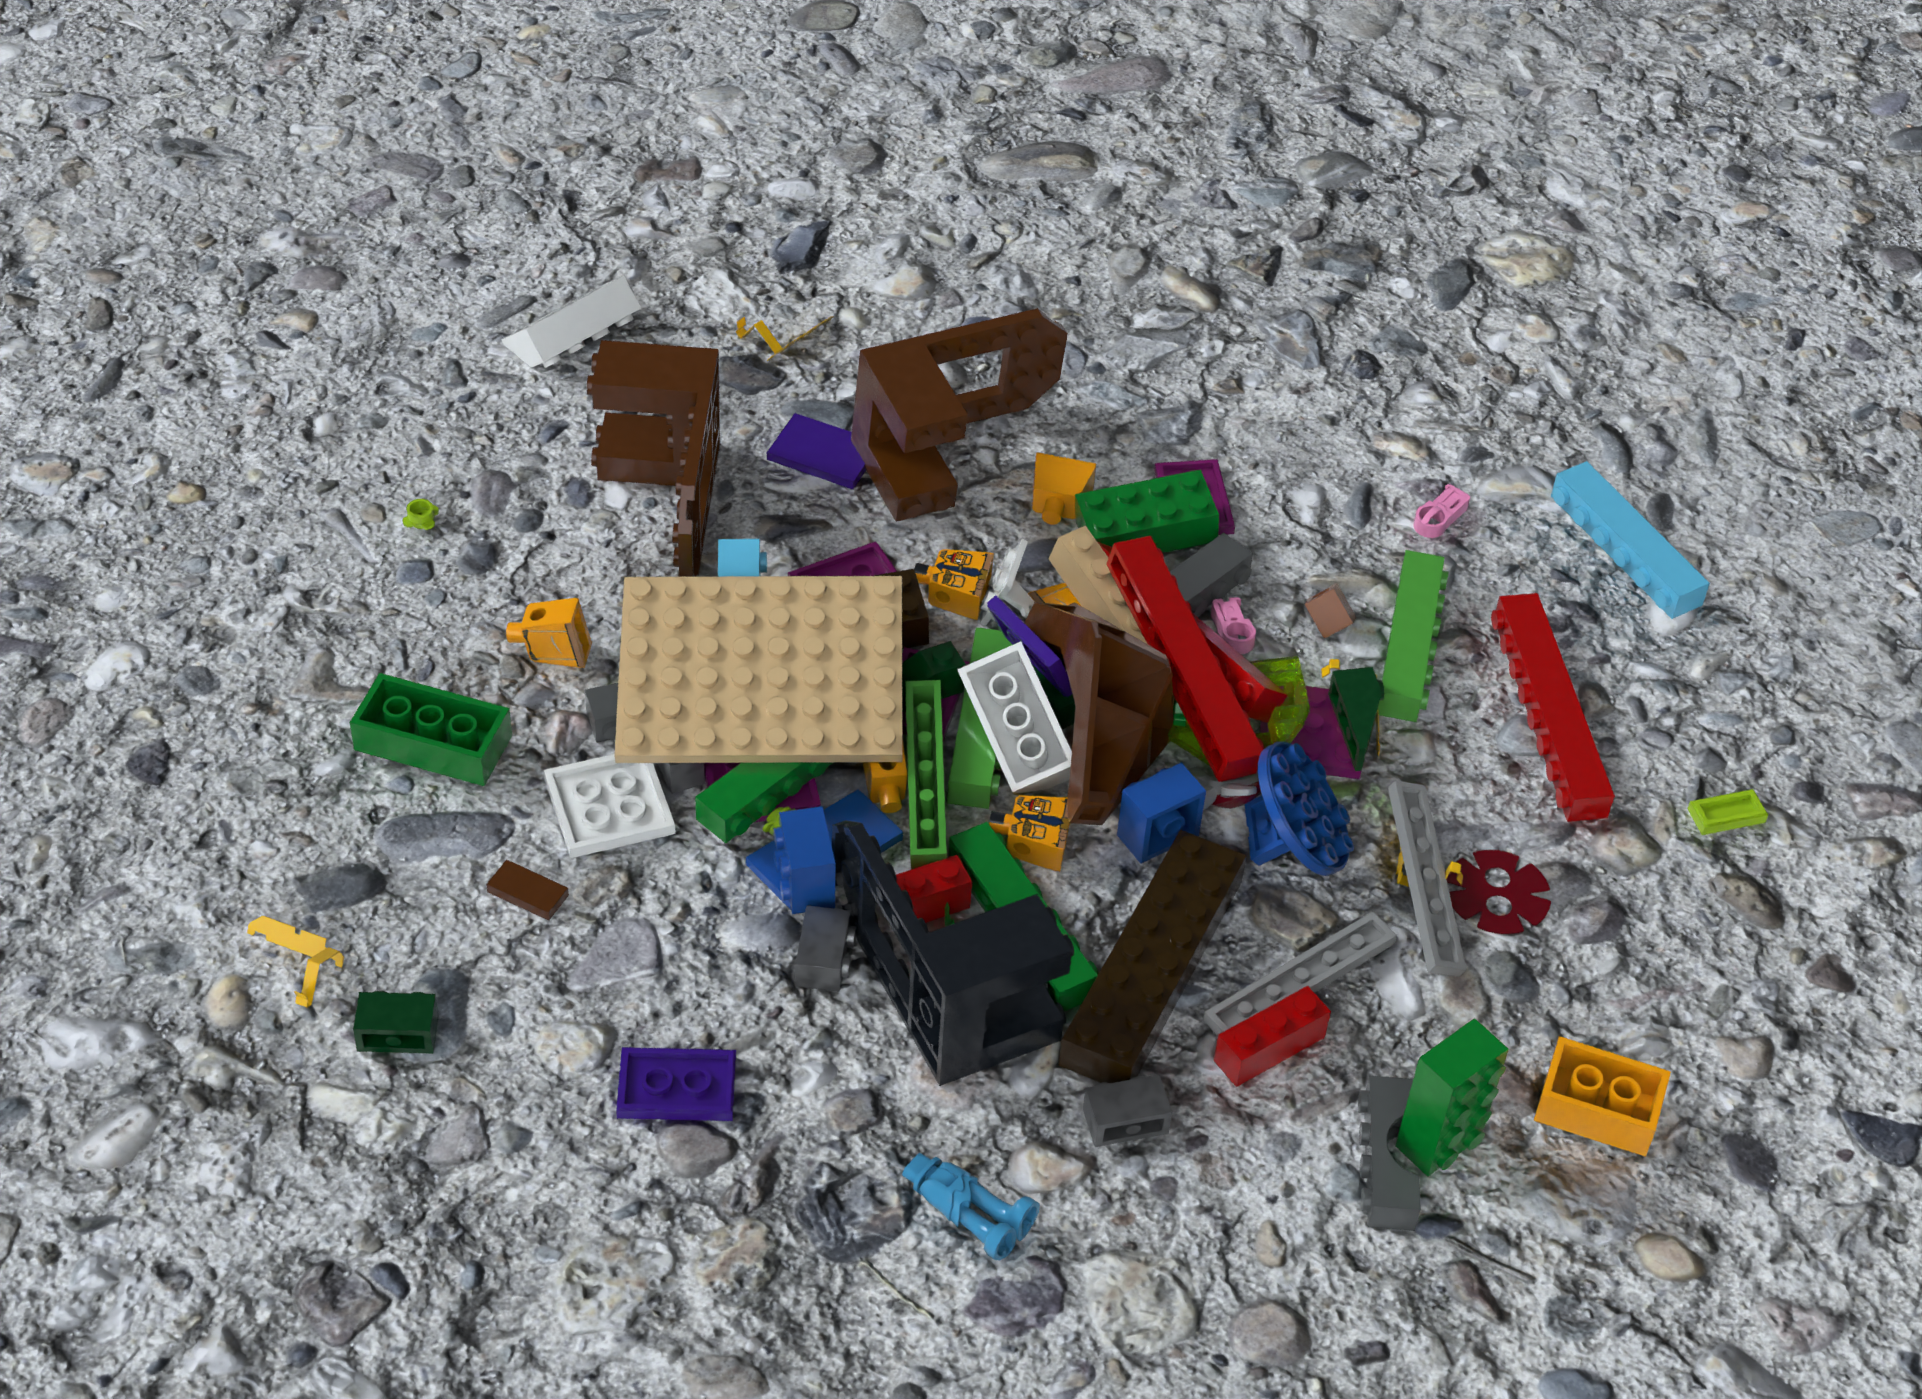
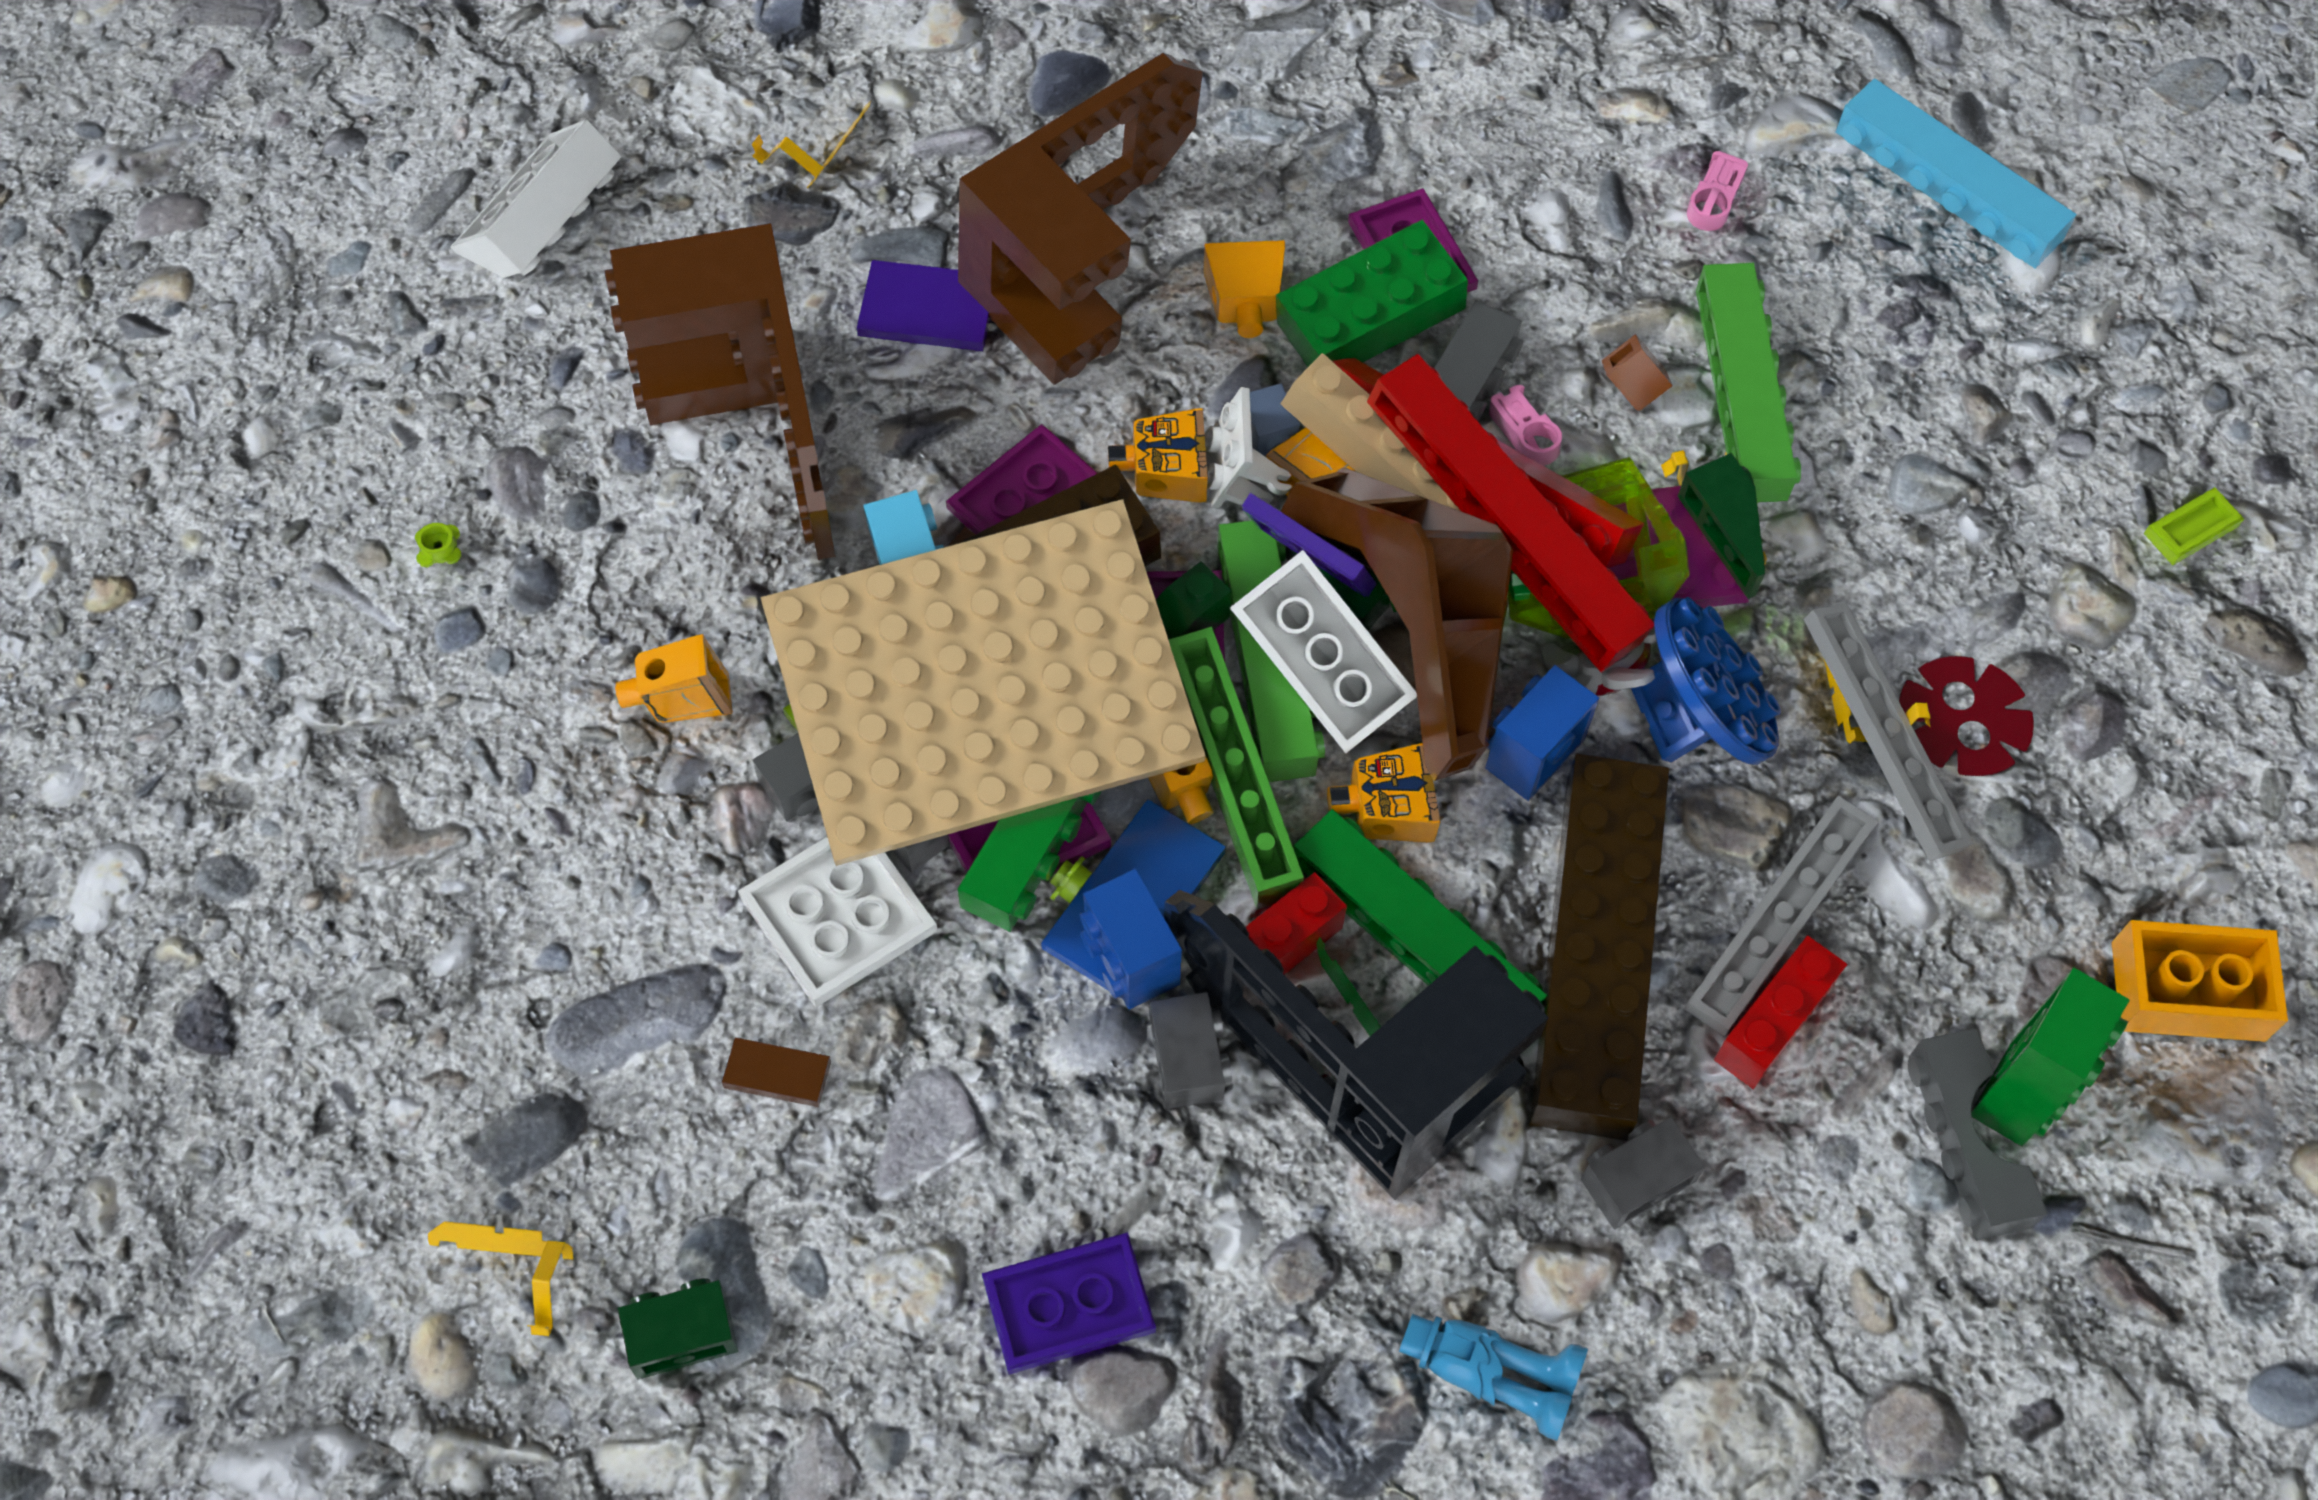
camera: 15 degrees left, 15 degrees up
(431, 729) = (569, 874): green brick -> none
(1039, 571) = (1270, 420): none -> sand blue brick
(1552, 708) = (1948, 439): red brick -> none

